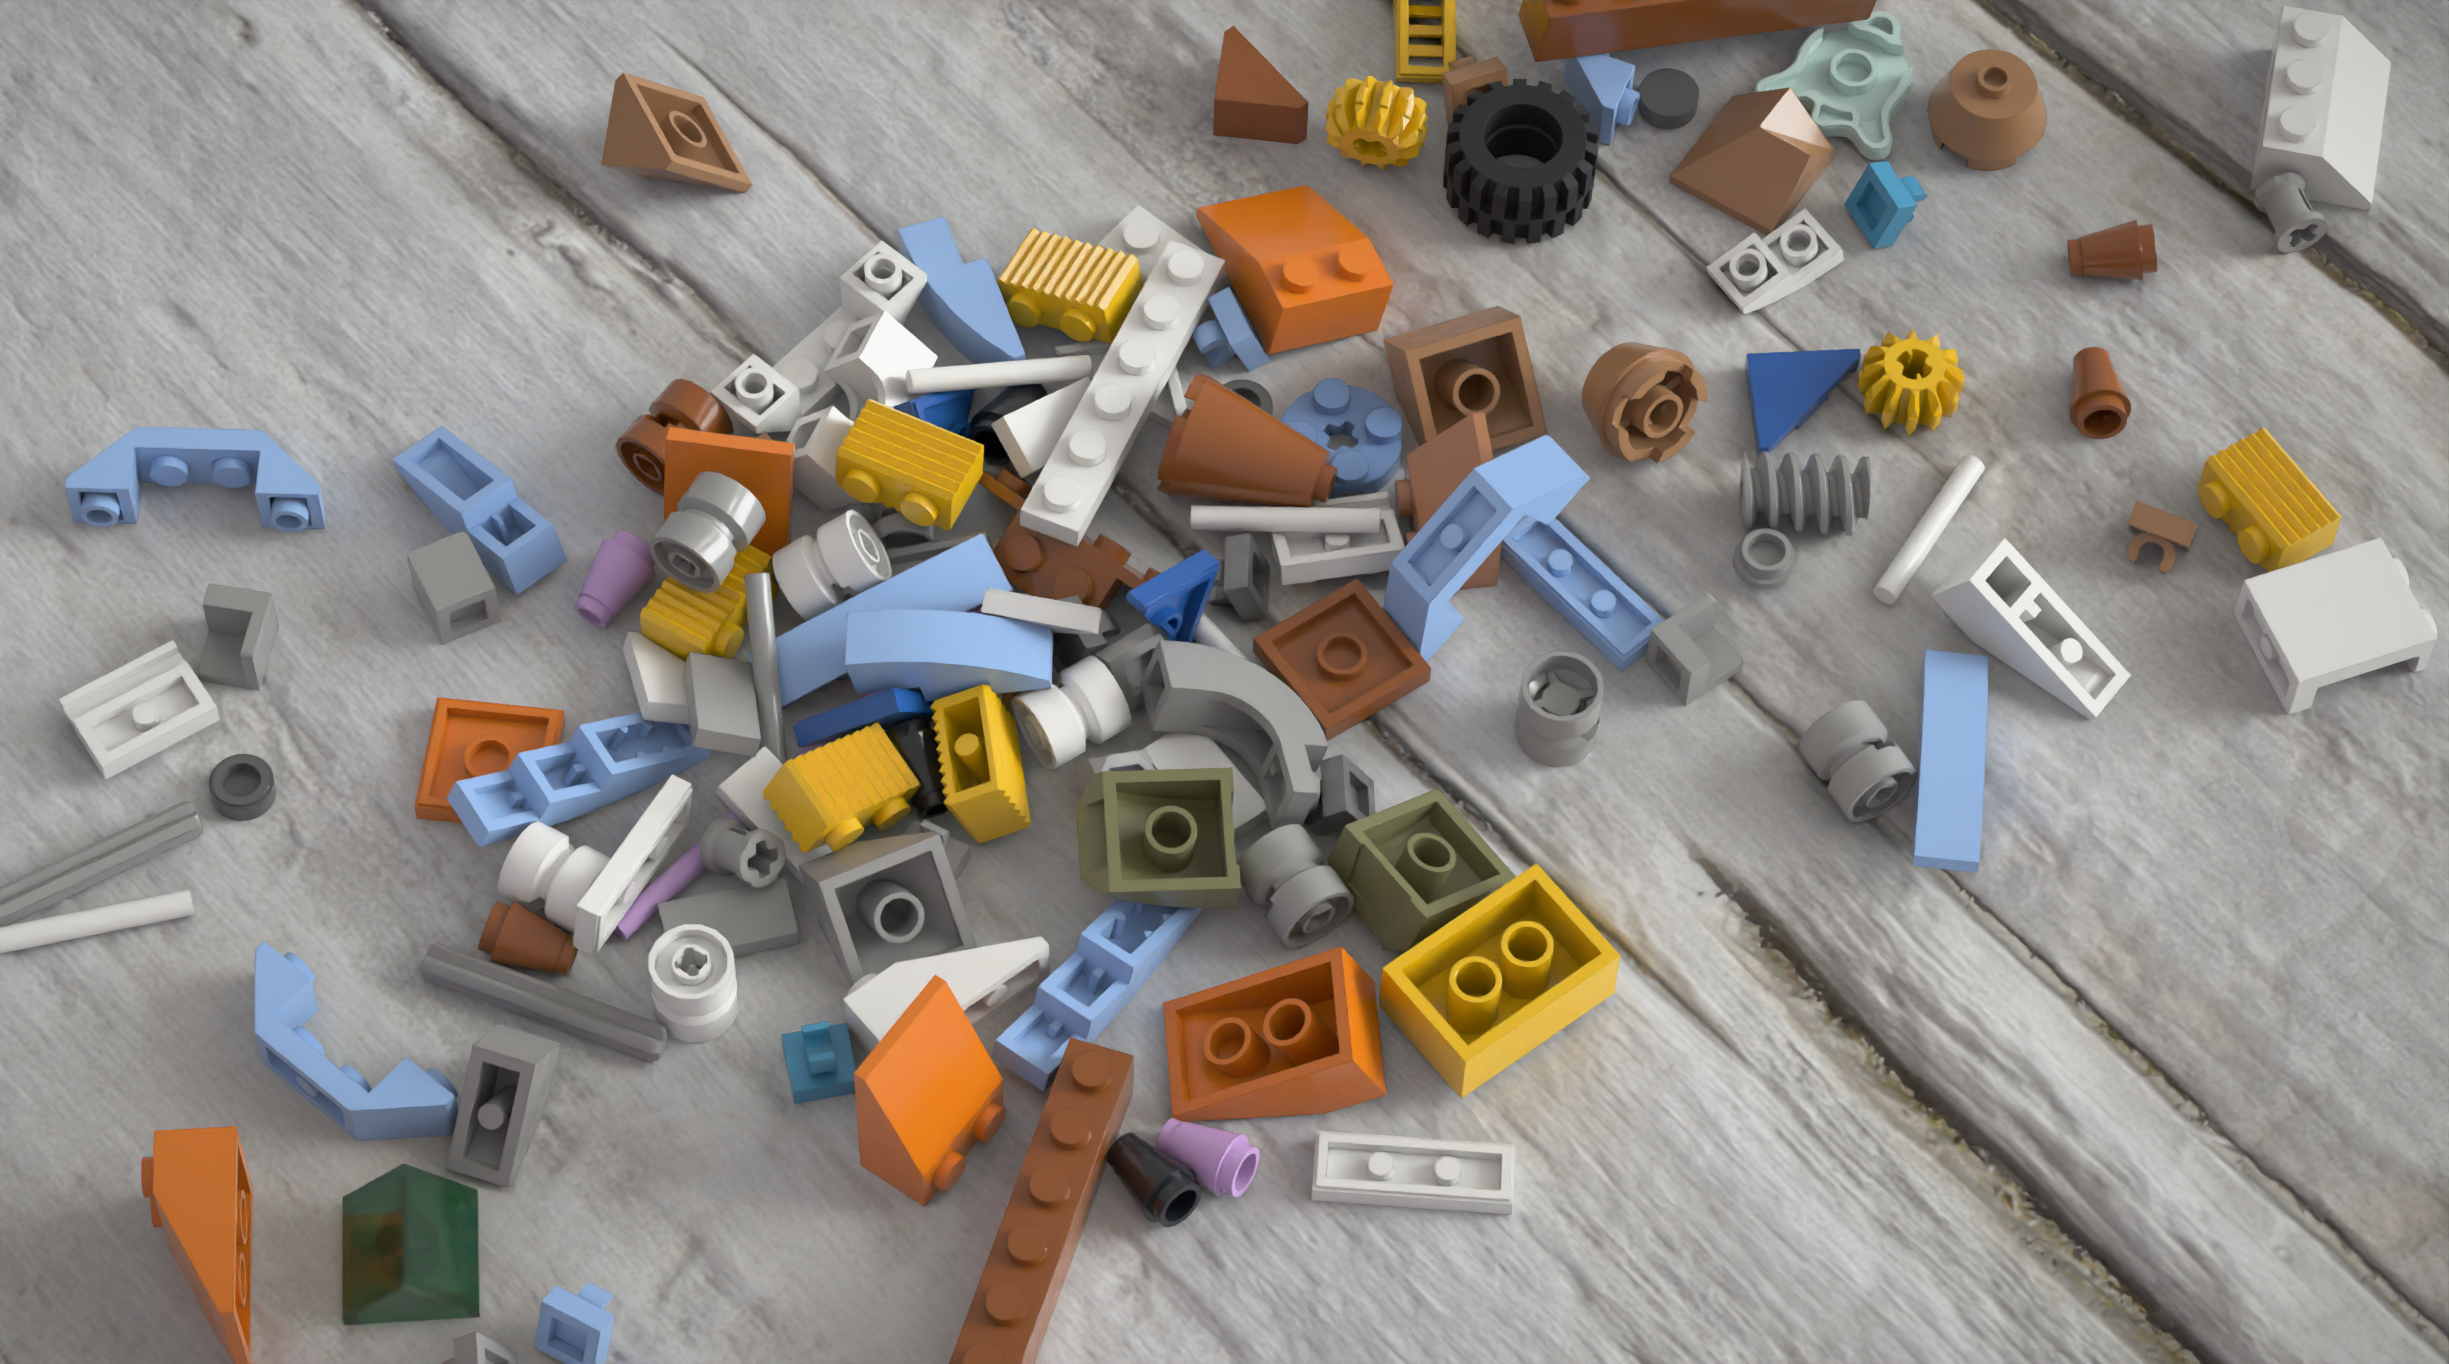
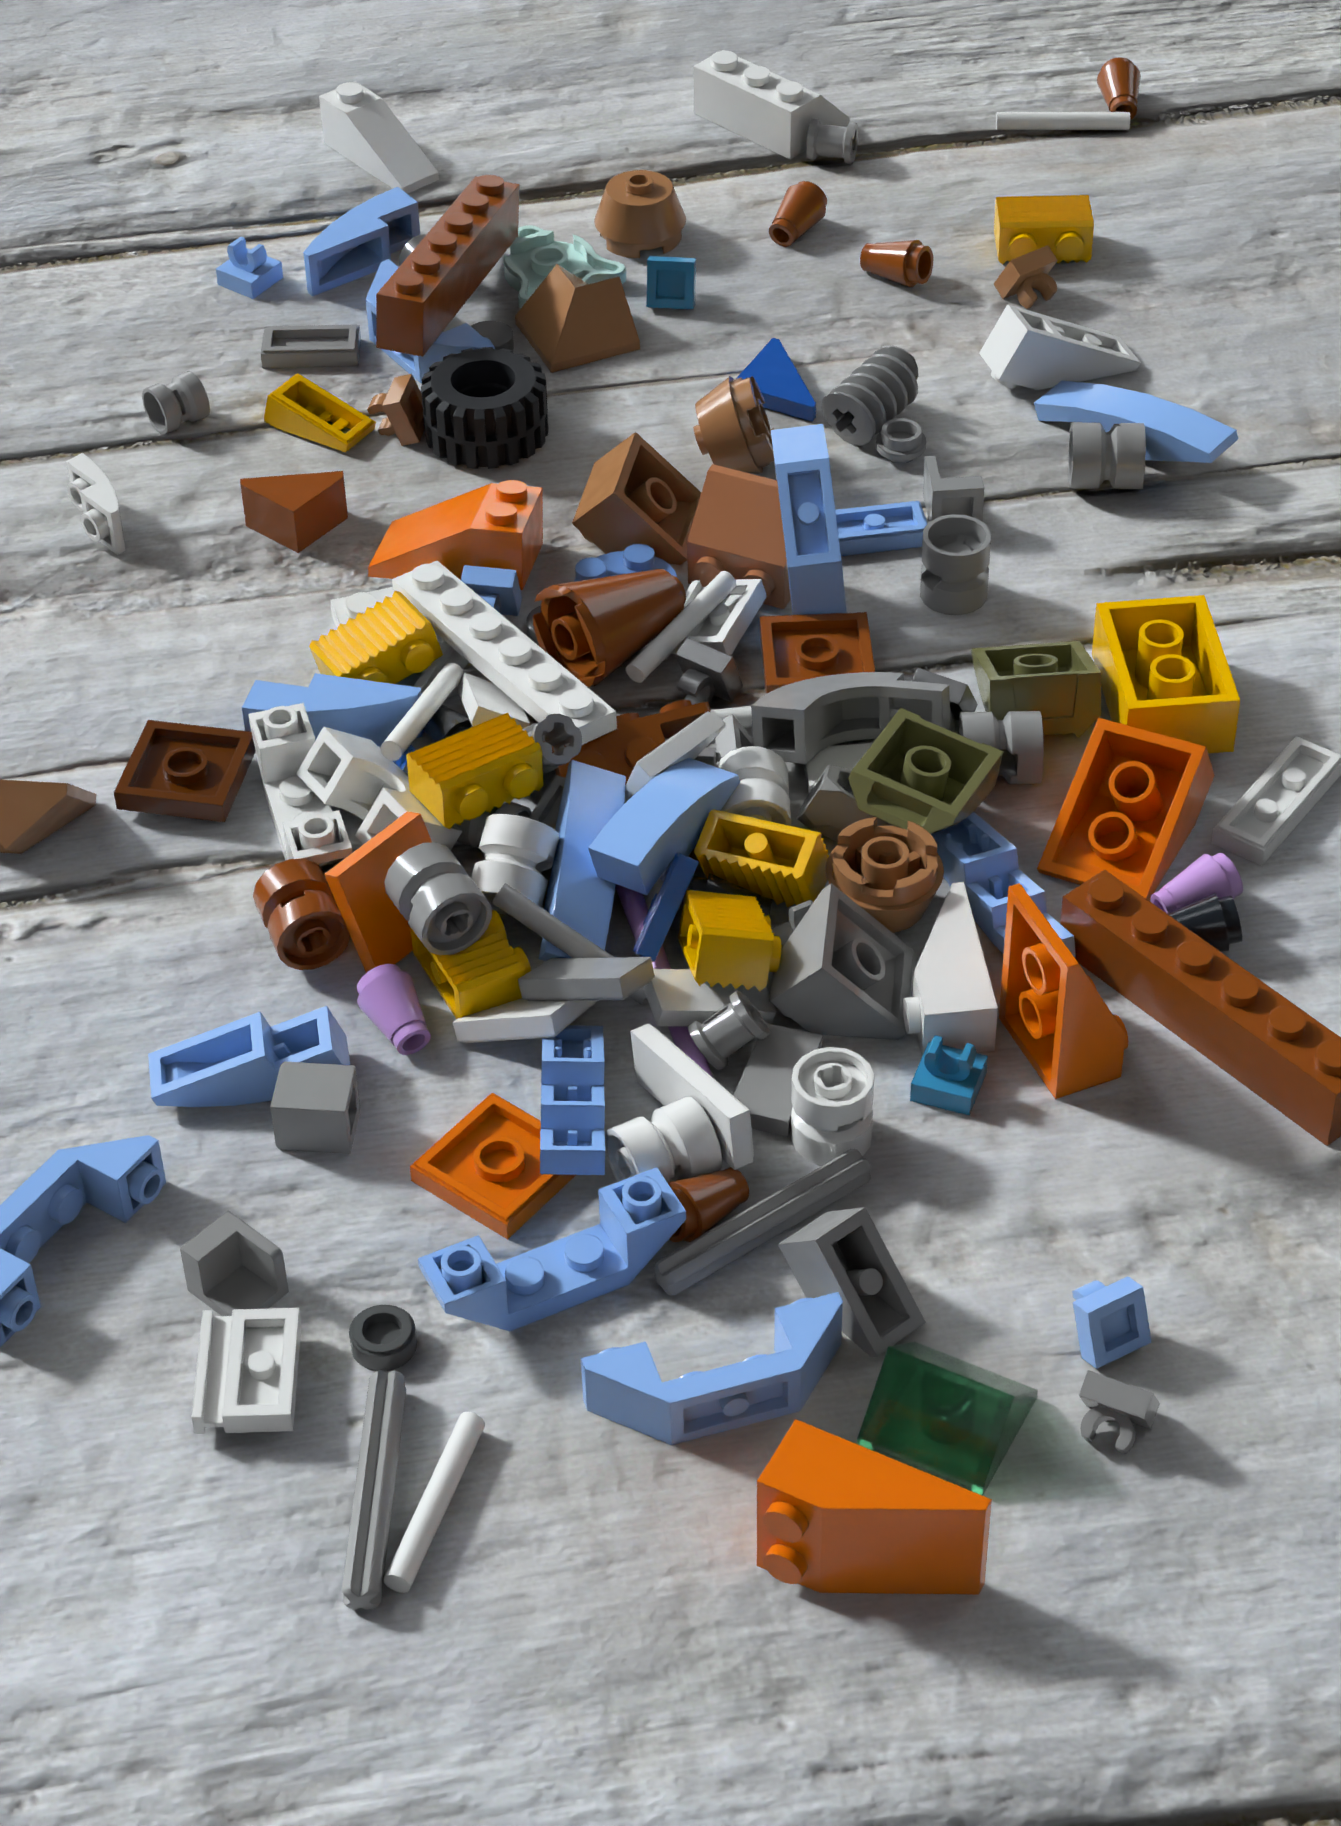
camera: 55 degrees left, 15 degrees down
(426, 899) = (633, 1226): none -> light blue slope
(811, 232) = (185, 771): none -> reddish brown plate
(975, 494) = (557, 732): none -> light grey bush
(1021, 872) = (887, 870): none -> medium nougat cone
(1177, 596) = (719, 676): blue tile -> none
(1376, 122) = (388, 452): yellow gear -> none
(1778, 265) = (667, 345): white slope -> none
(1910, 381) = (821, 325): yellow gear -> none
(1928, 529) = (937, 371): white bar -> none
(2333, 621) = (1156, 240): white panel -> none

